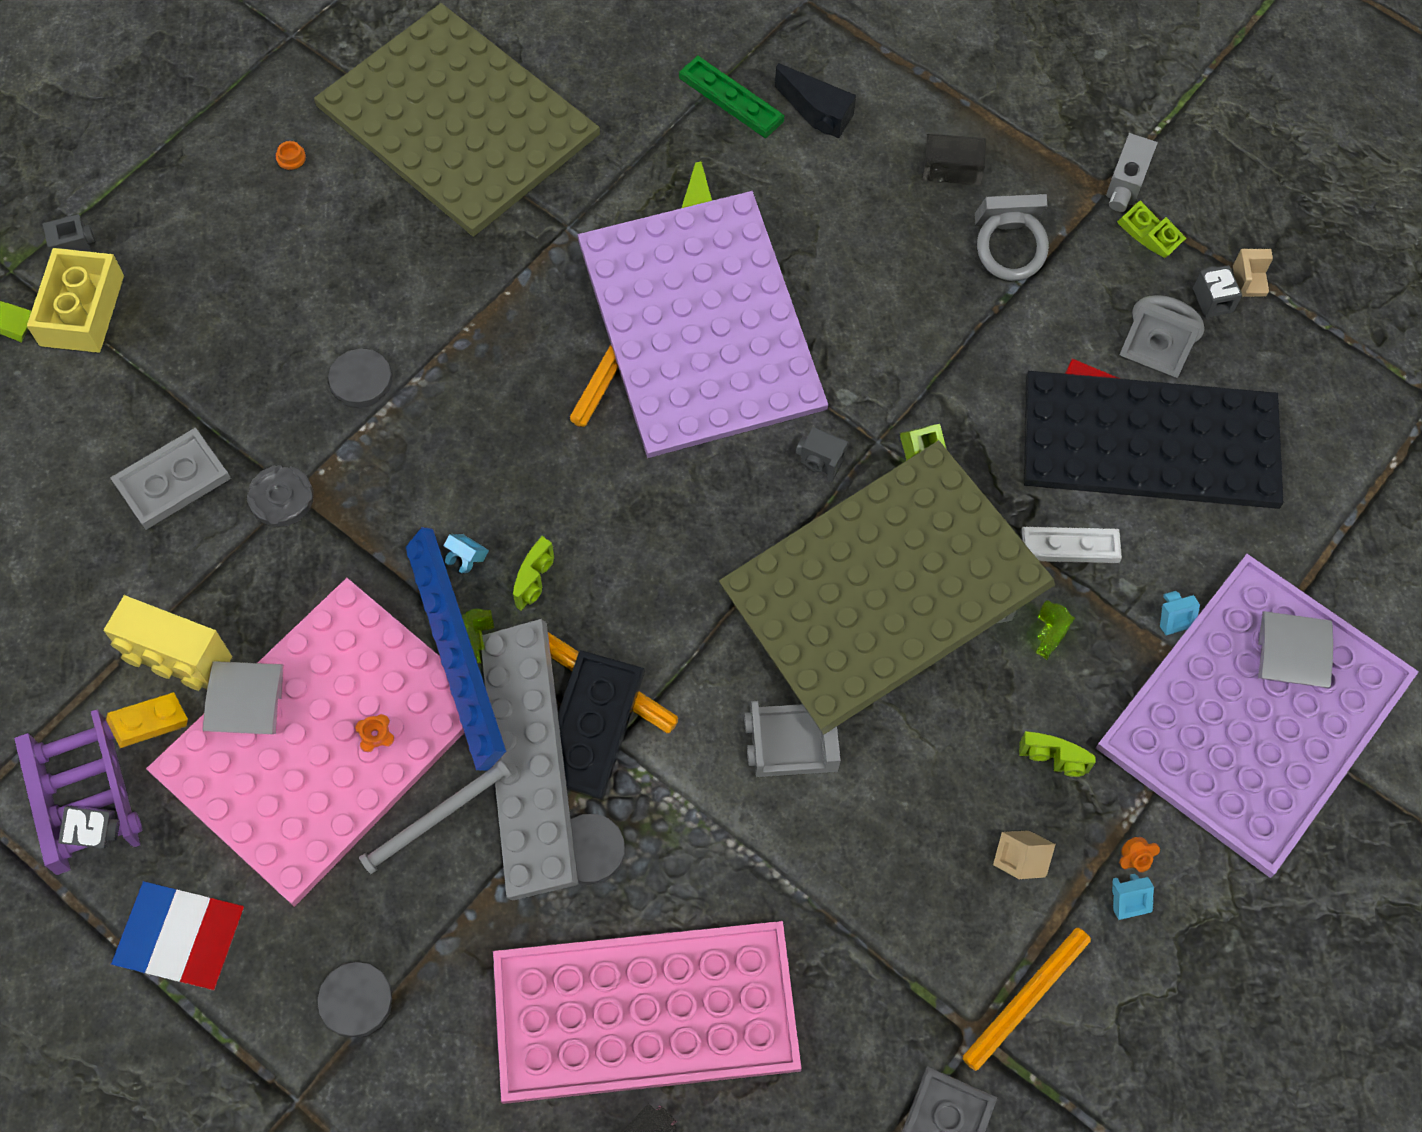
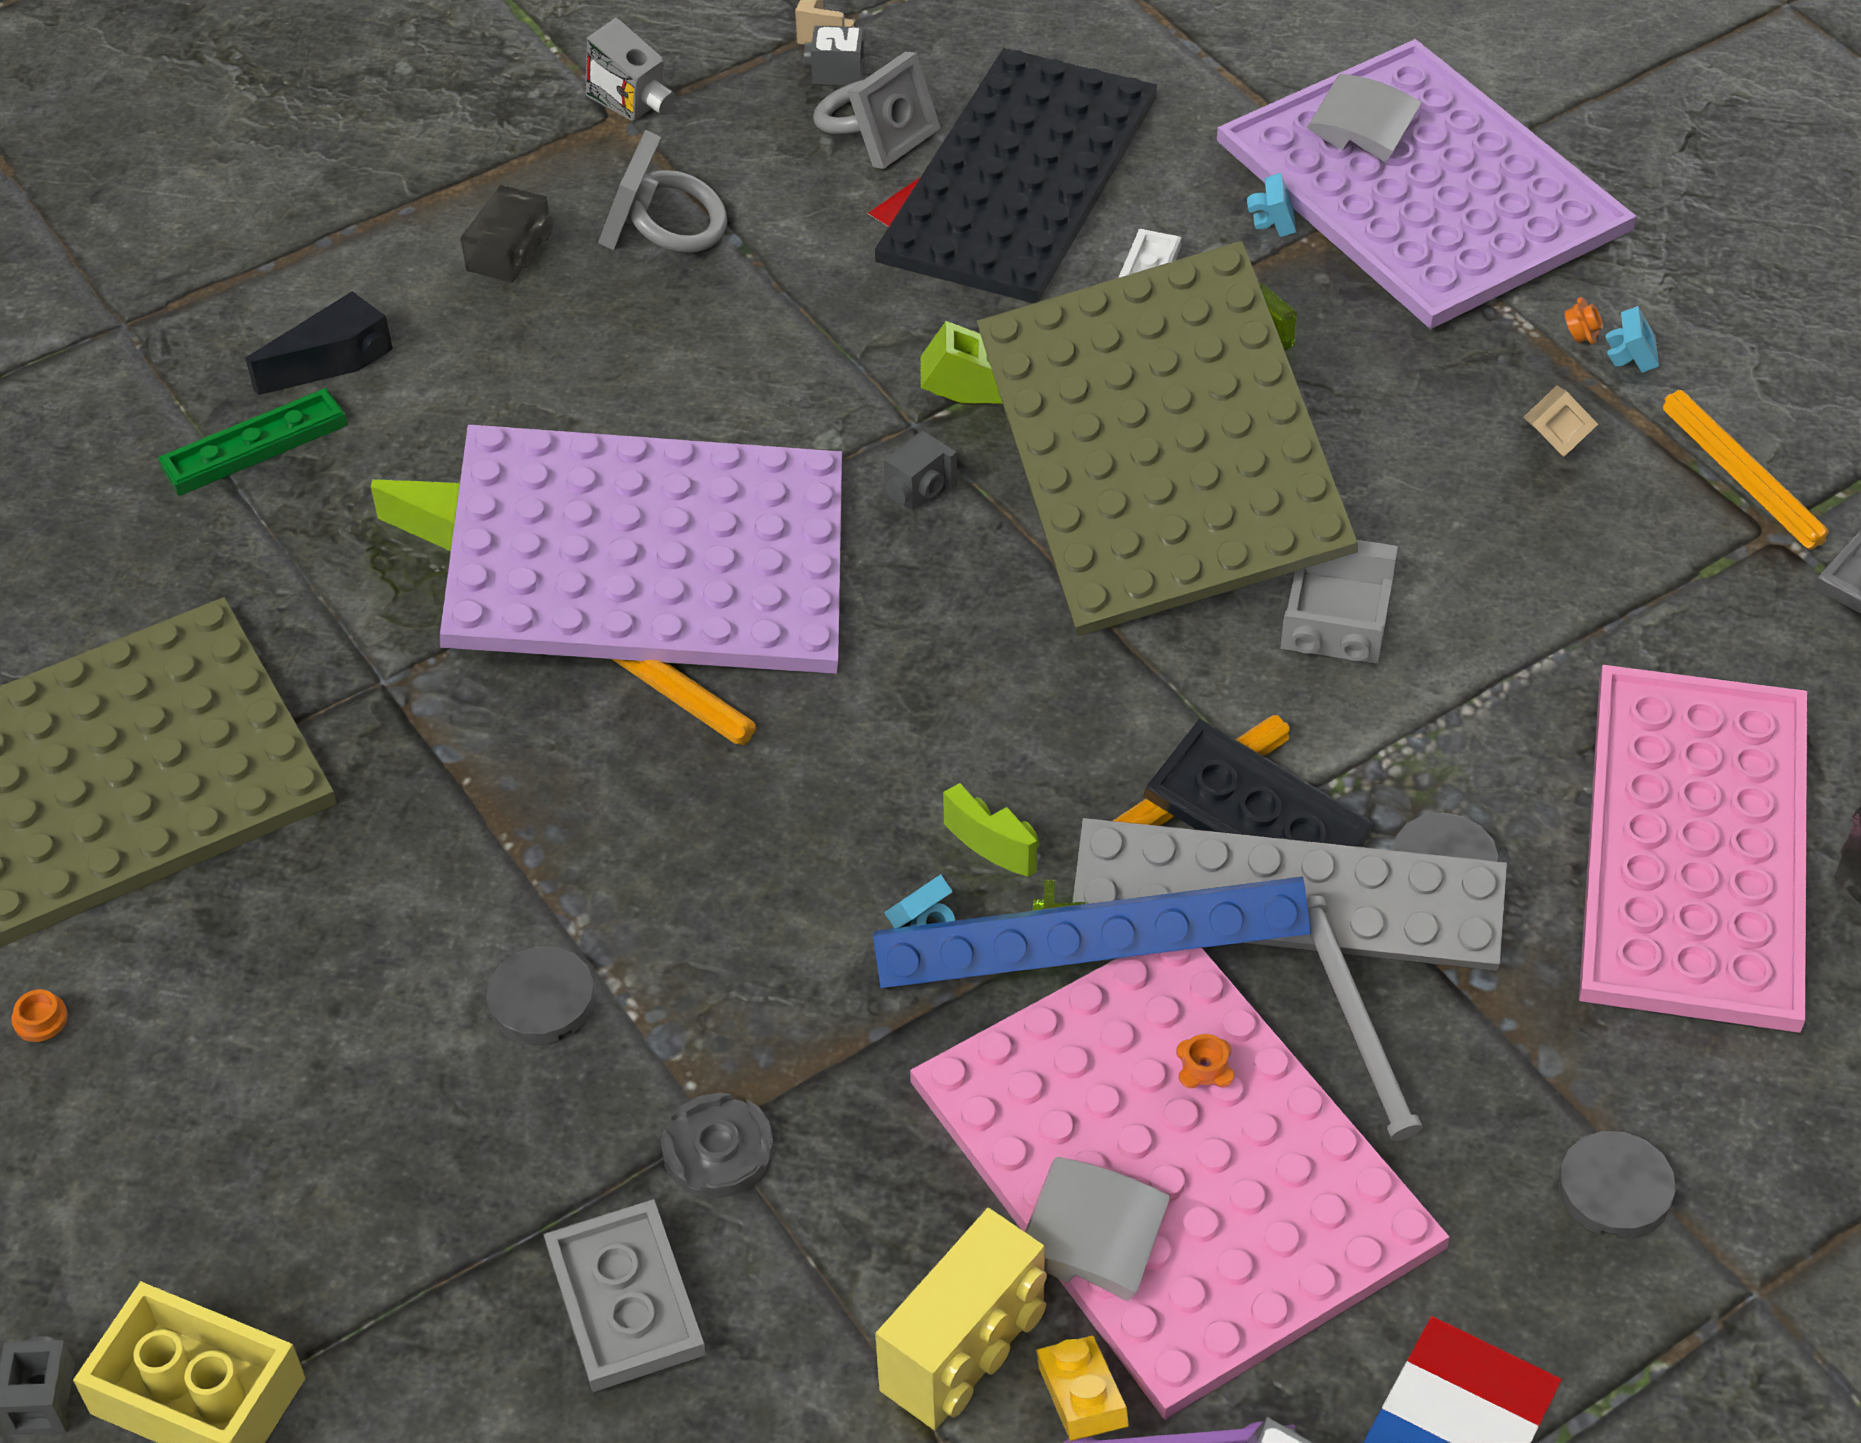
camera: 70 degrees left, 15 degrees down
(1067, 756) = (1434, 356): lime slope -> none
(1149, 231) = (720, 89): lime slope -> none

